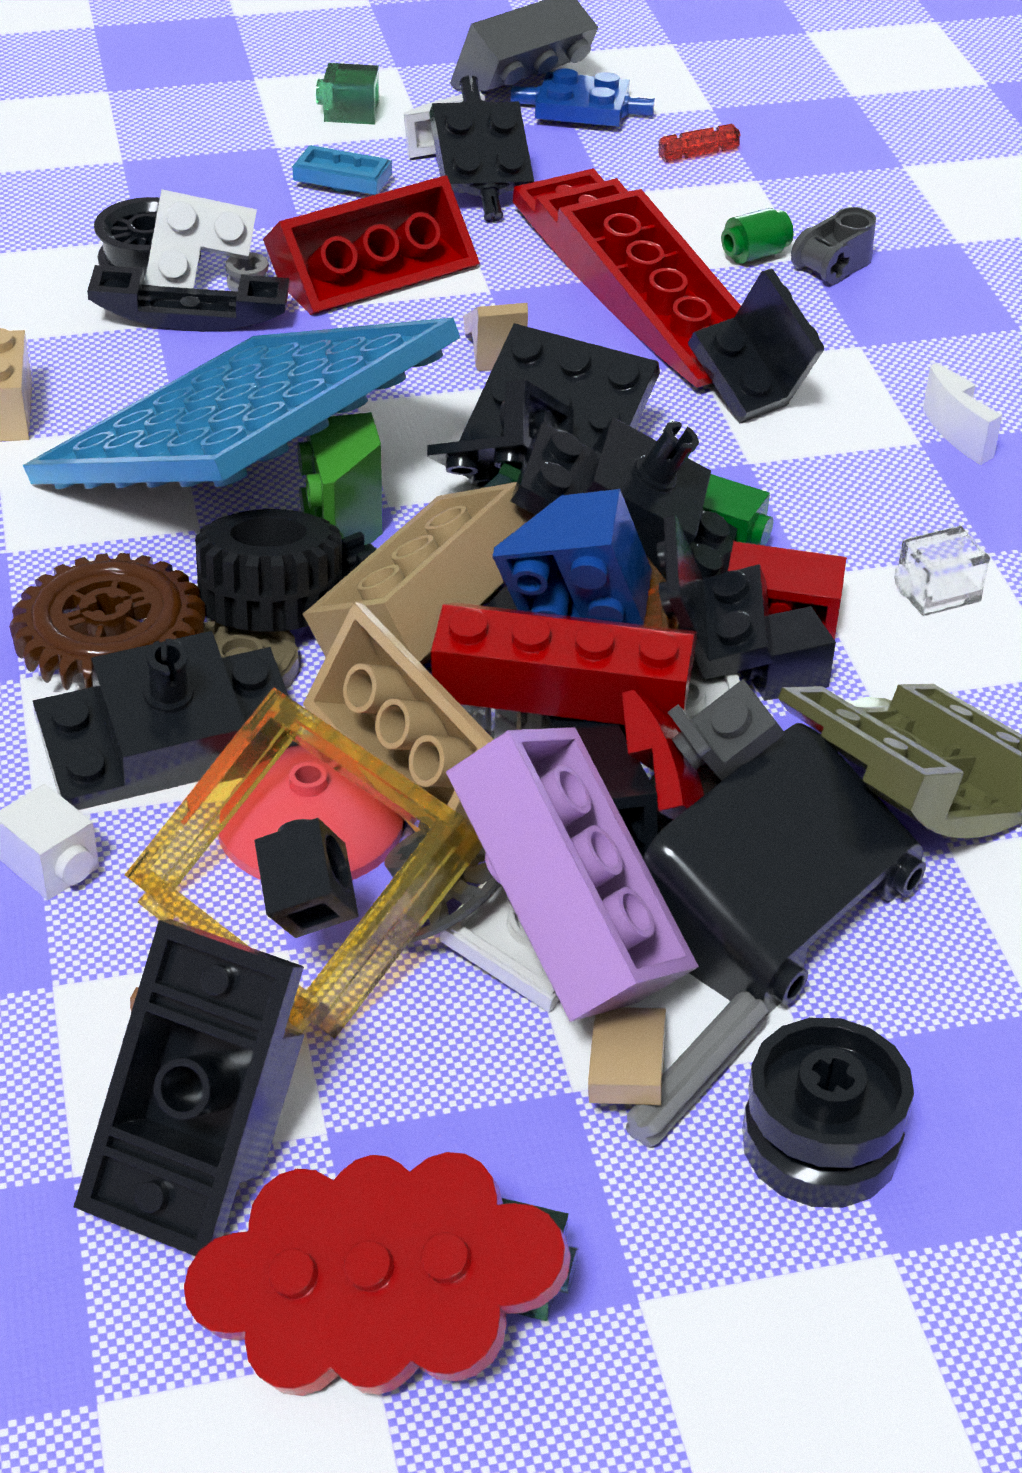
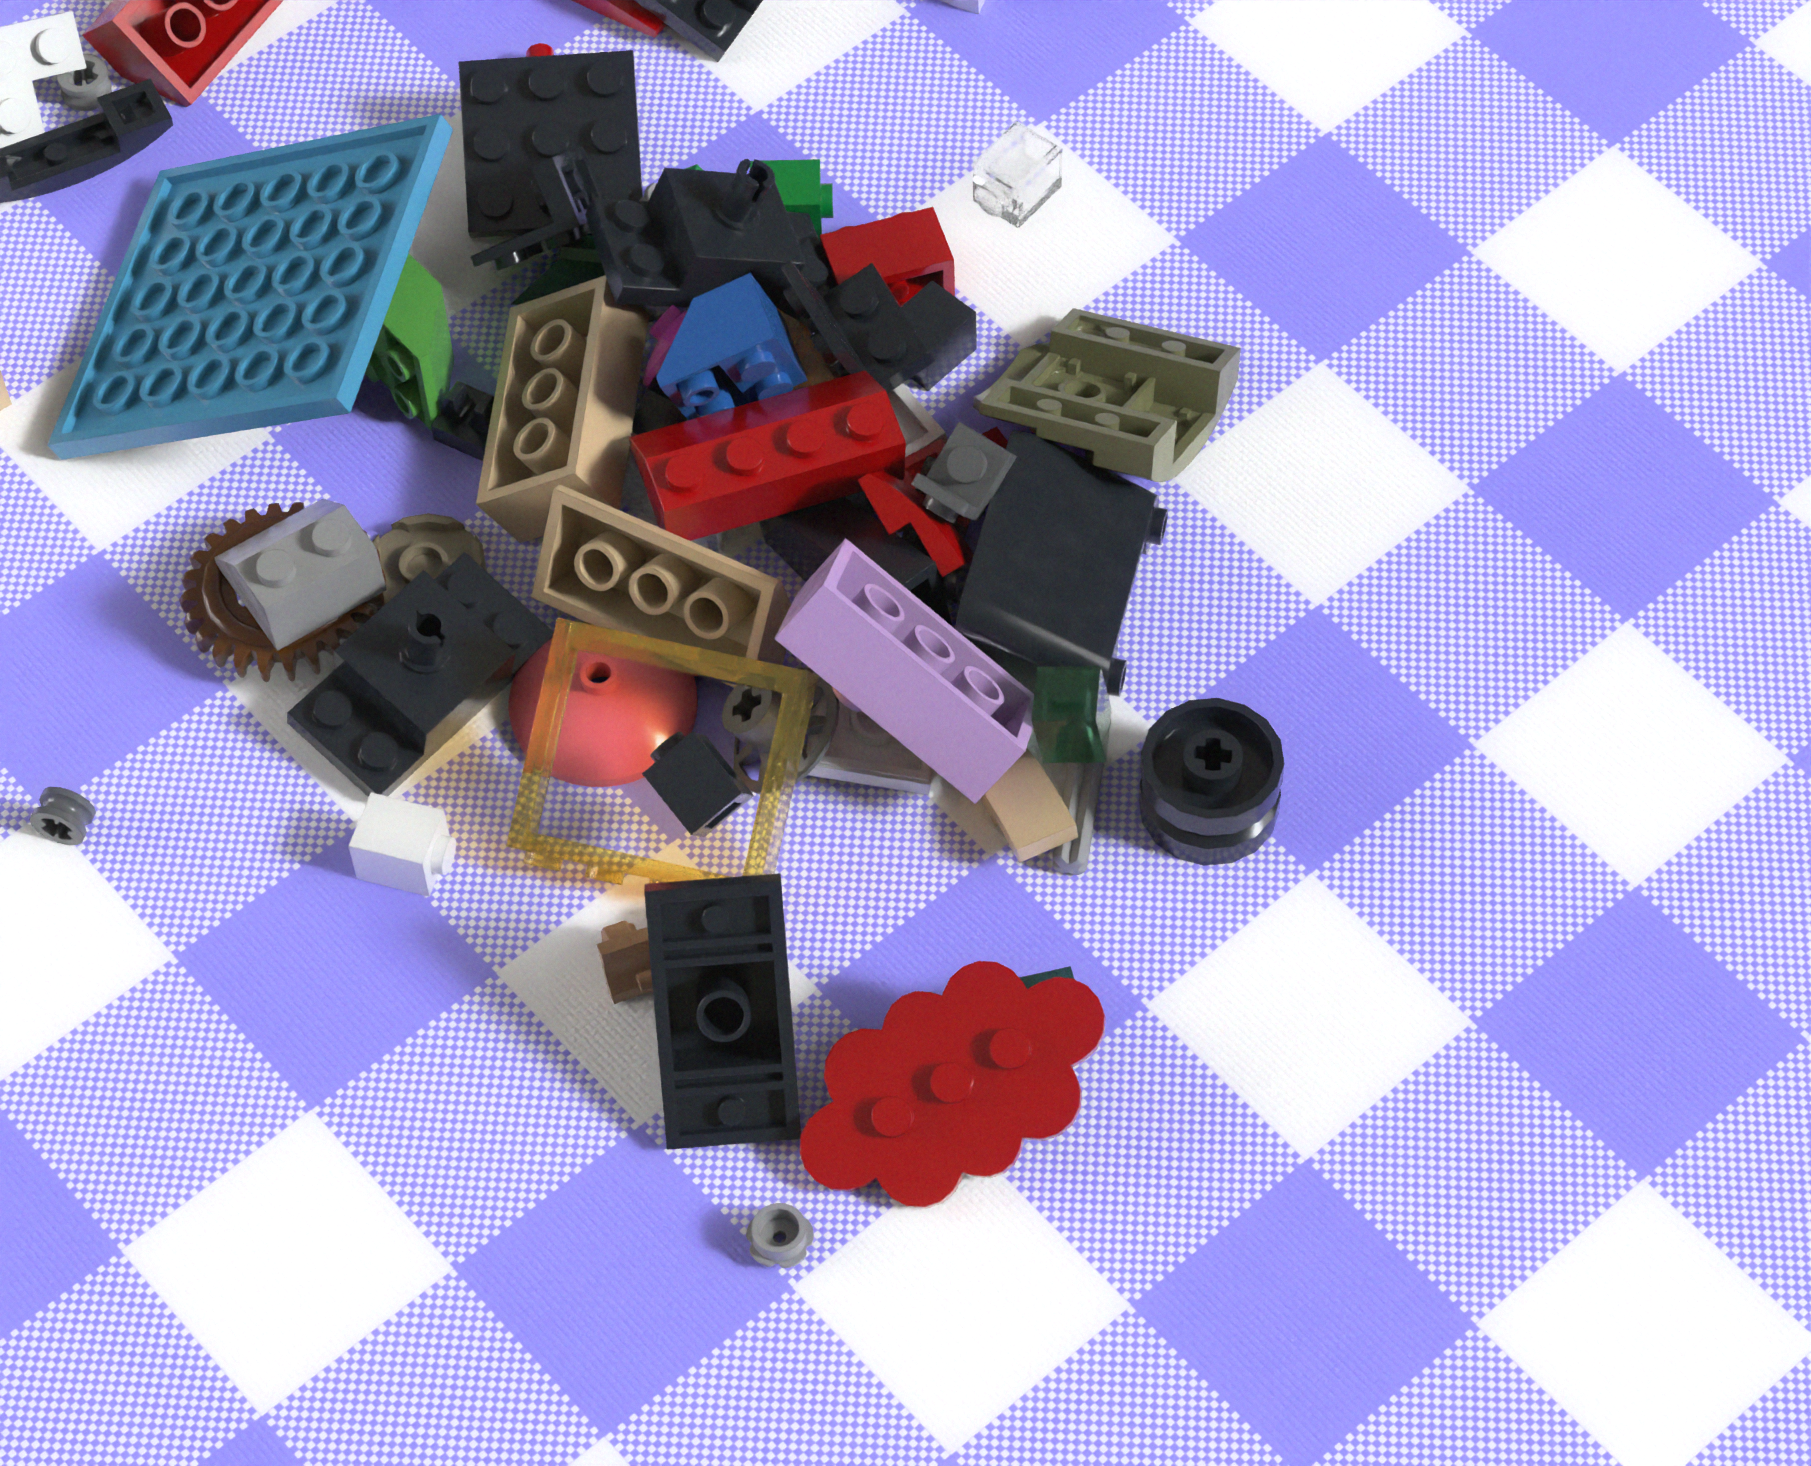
camera: 25 degrees left, 15 degrees up
(111, 1325) = (778, 1219): none -> light grey plate
(117, 599) = (304, 571): none -> light grey slope
(266, 567) = (403, 464): black tyre -> none
(491, 328) = (418, 54): tan slope -> none
(716, 985) = (1071, 714): none -> clear green brick

